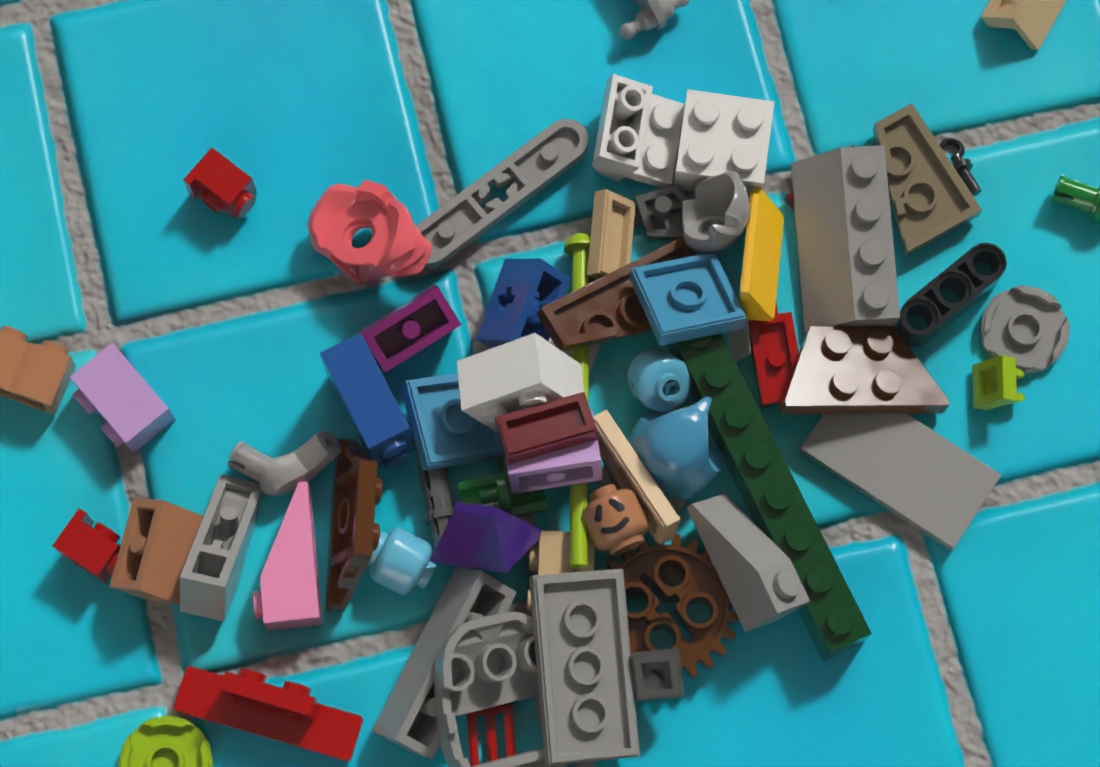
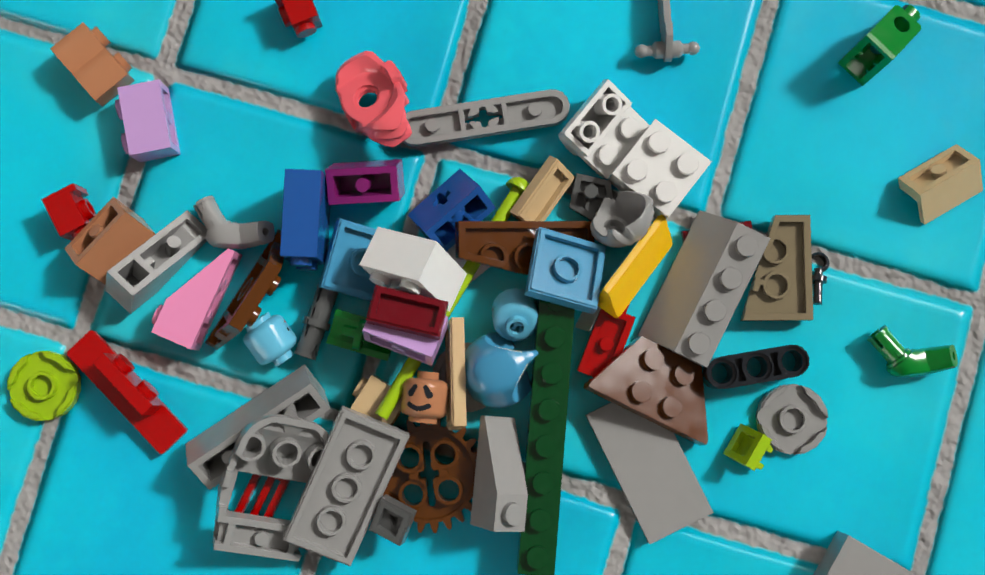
camera: 30 degrees right, 10 degrees up
(484, 538) = (328, 363): dark purple slope -> none

